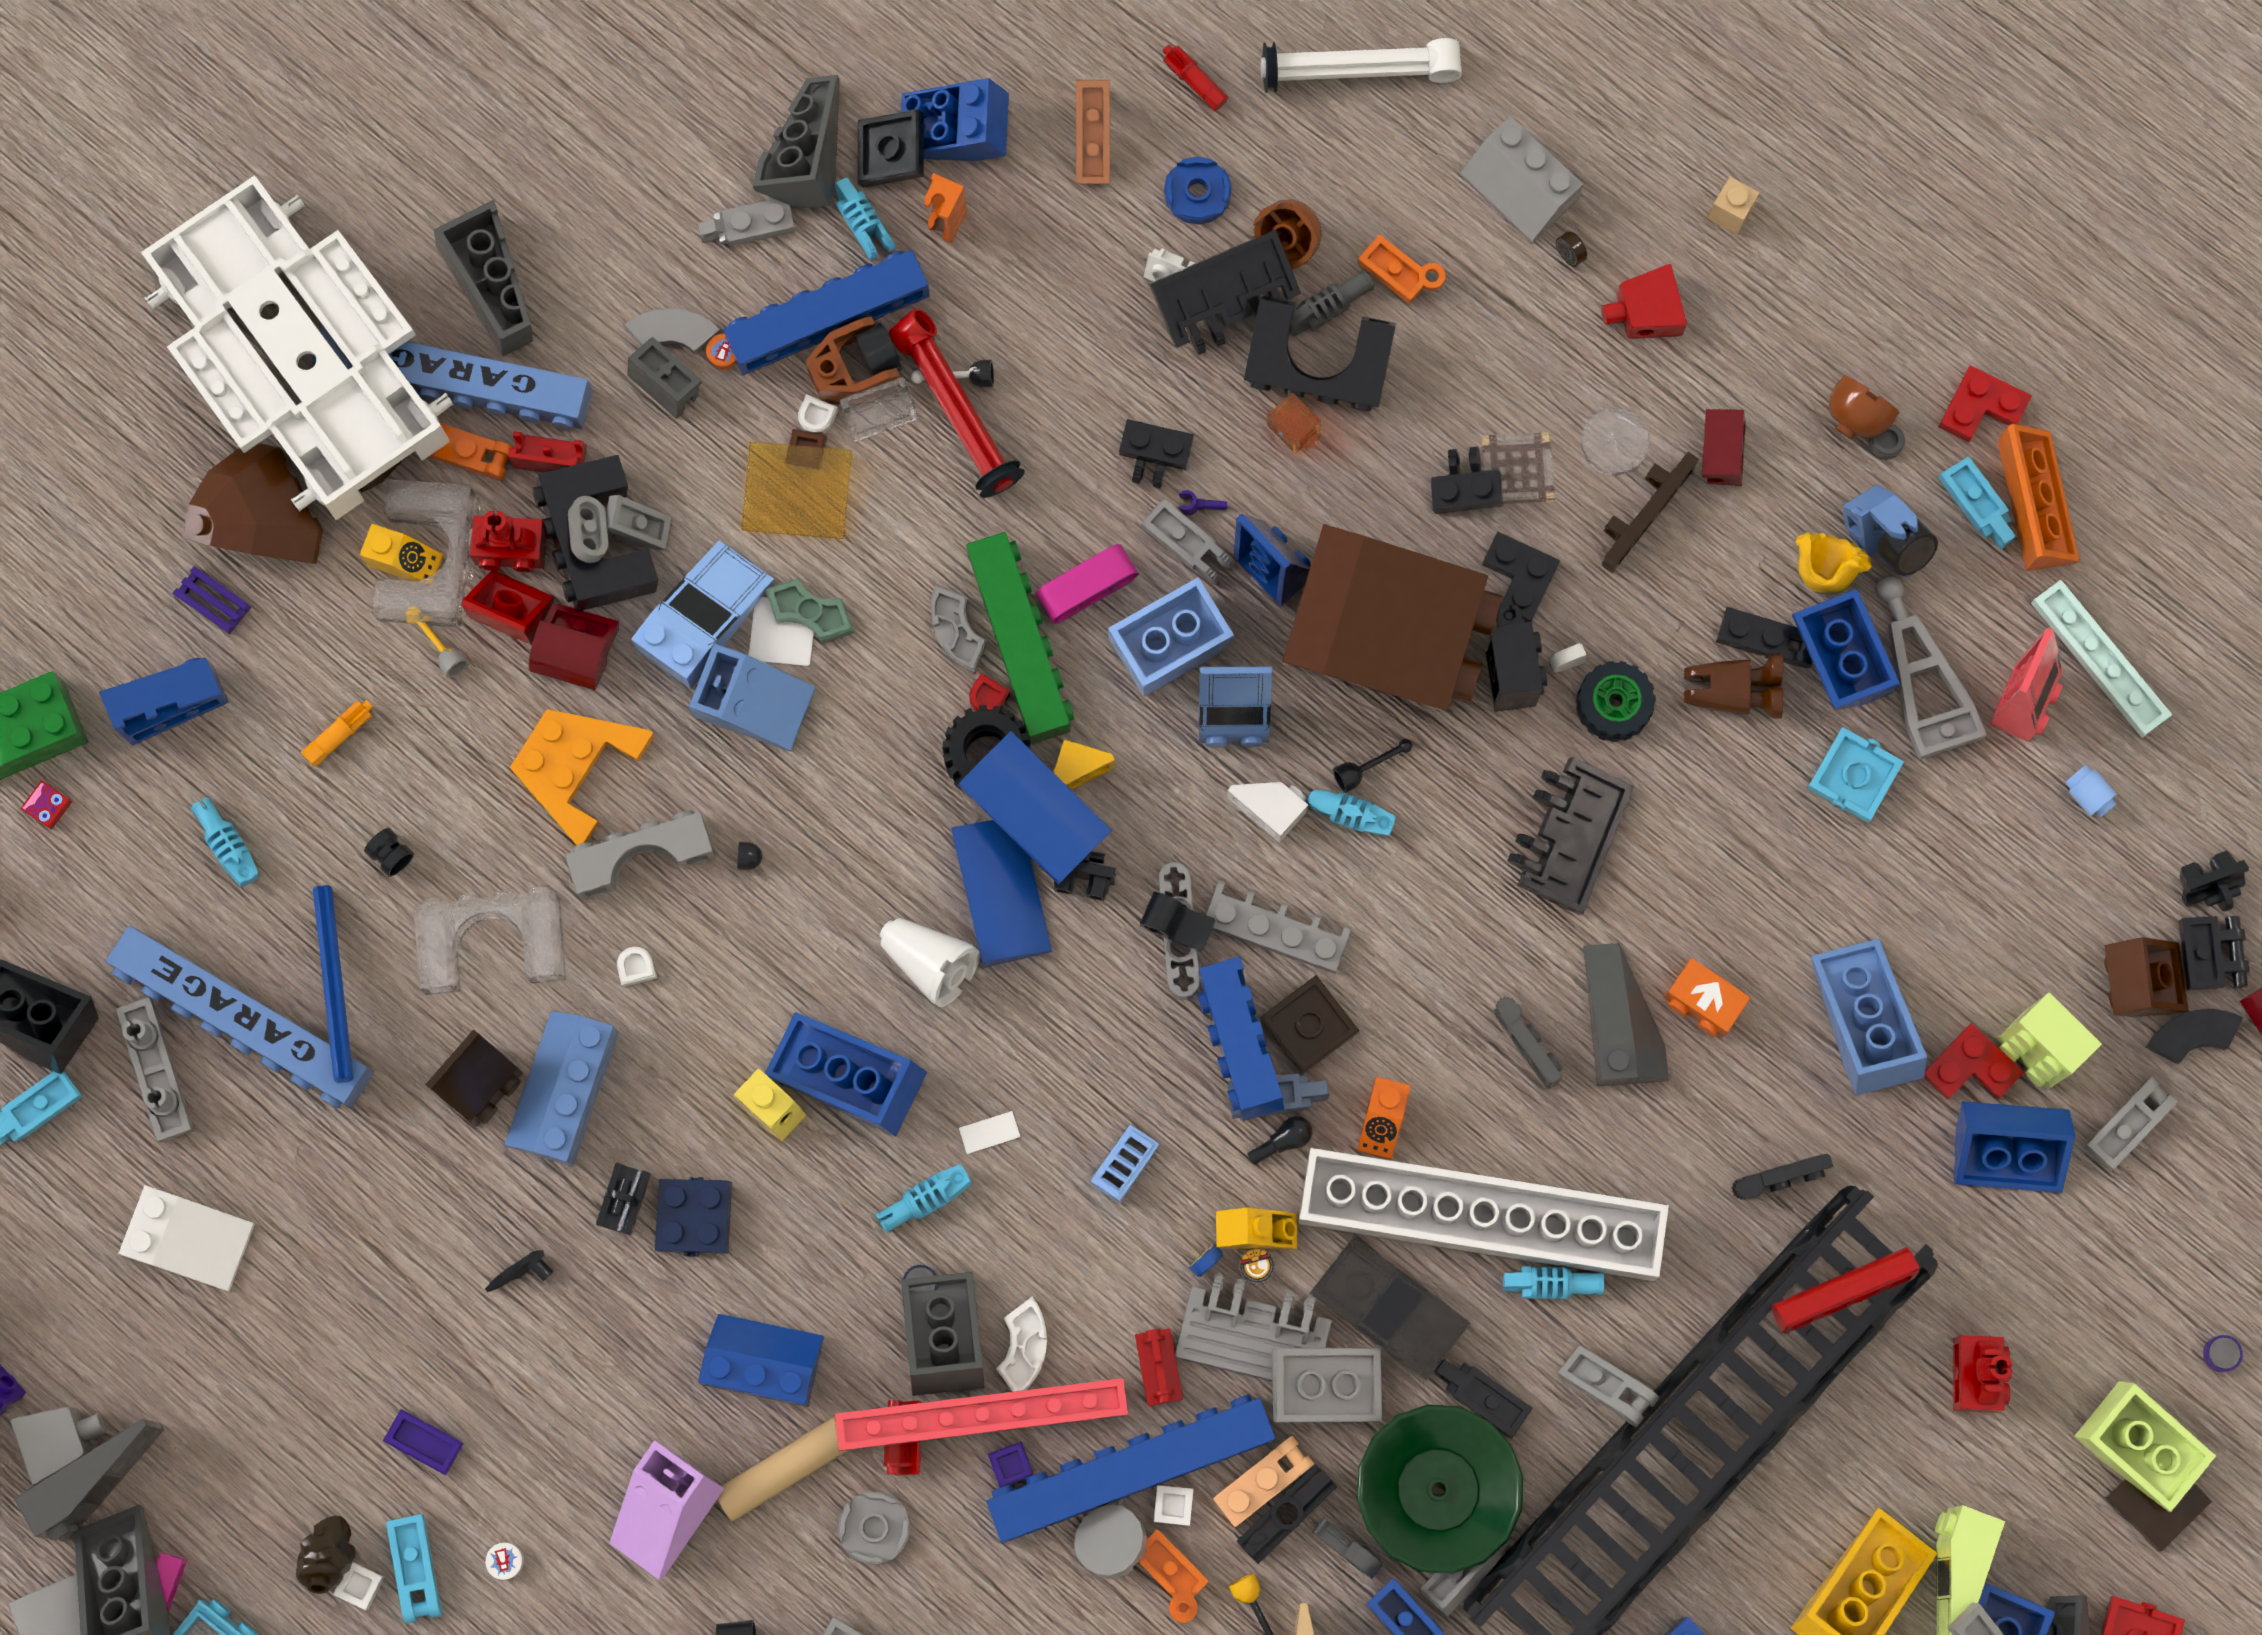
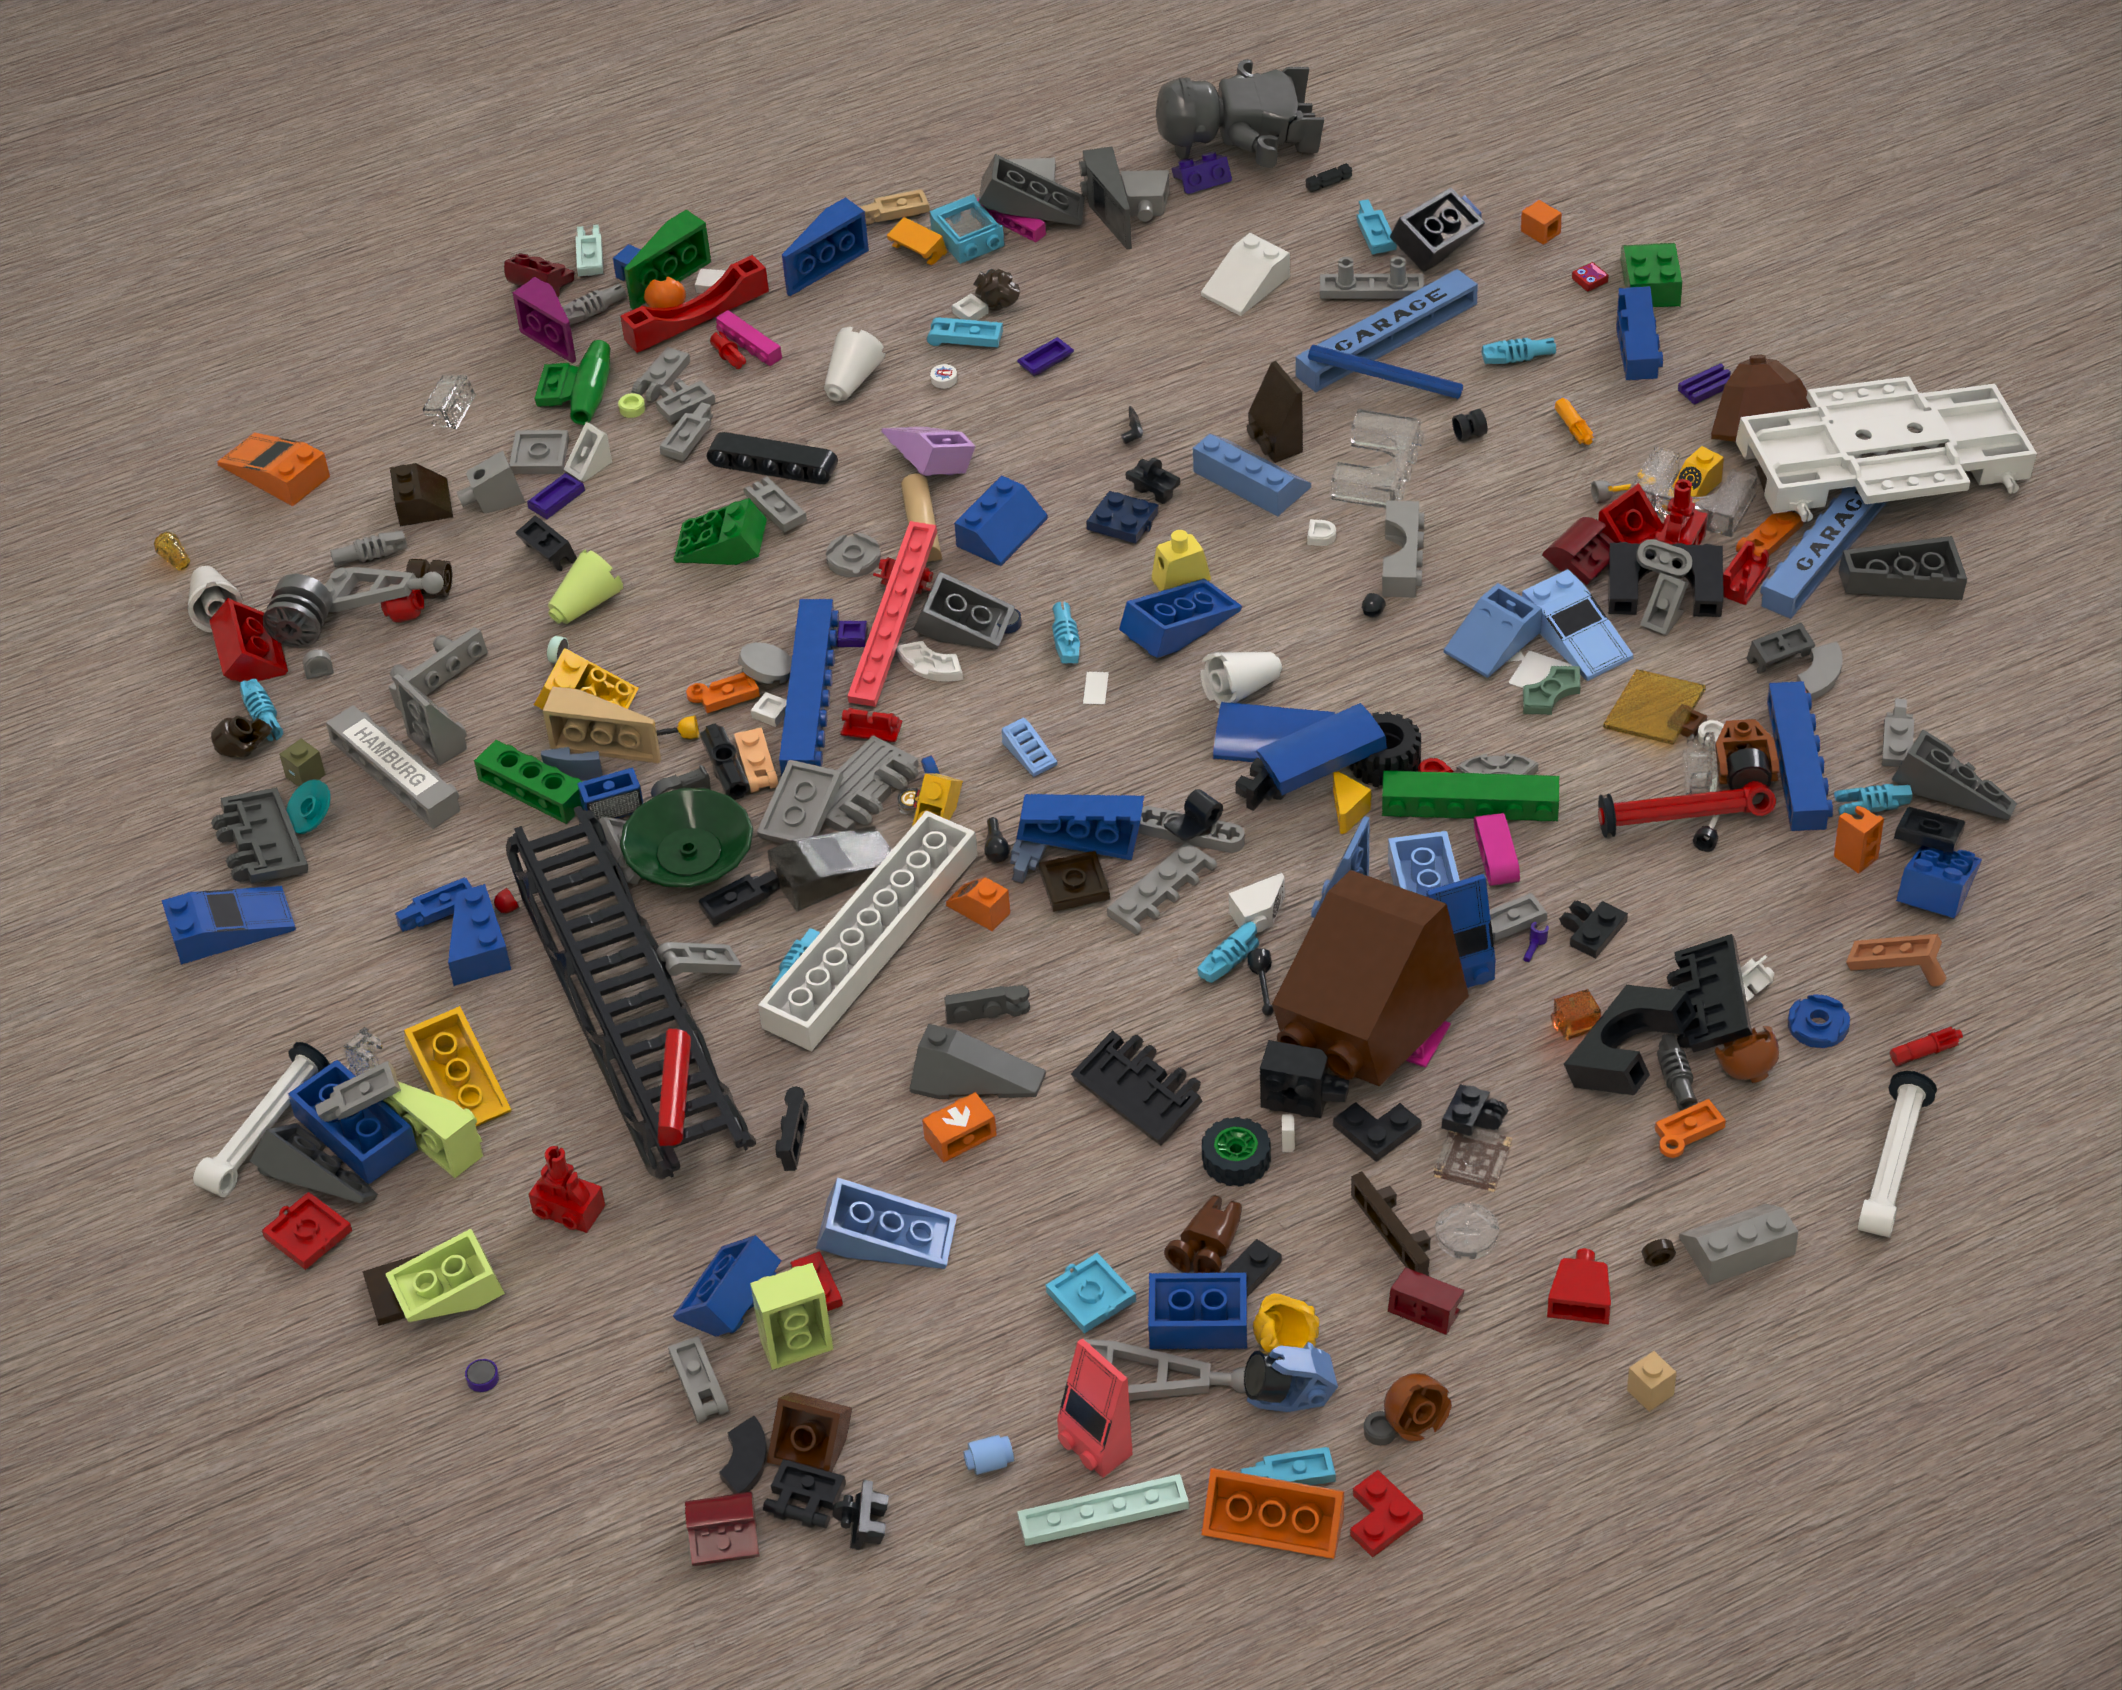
camera: 115 degrees right, 30 degrees down
(561, 757) = (1496, 528): light orange wing -> none

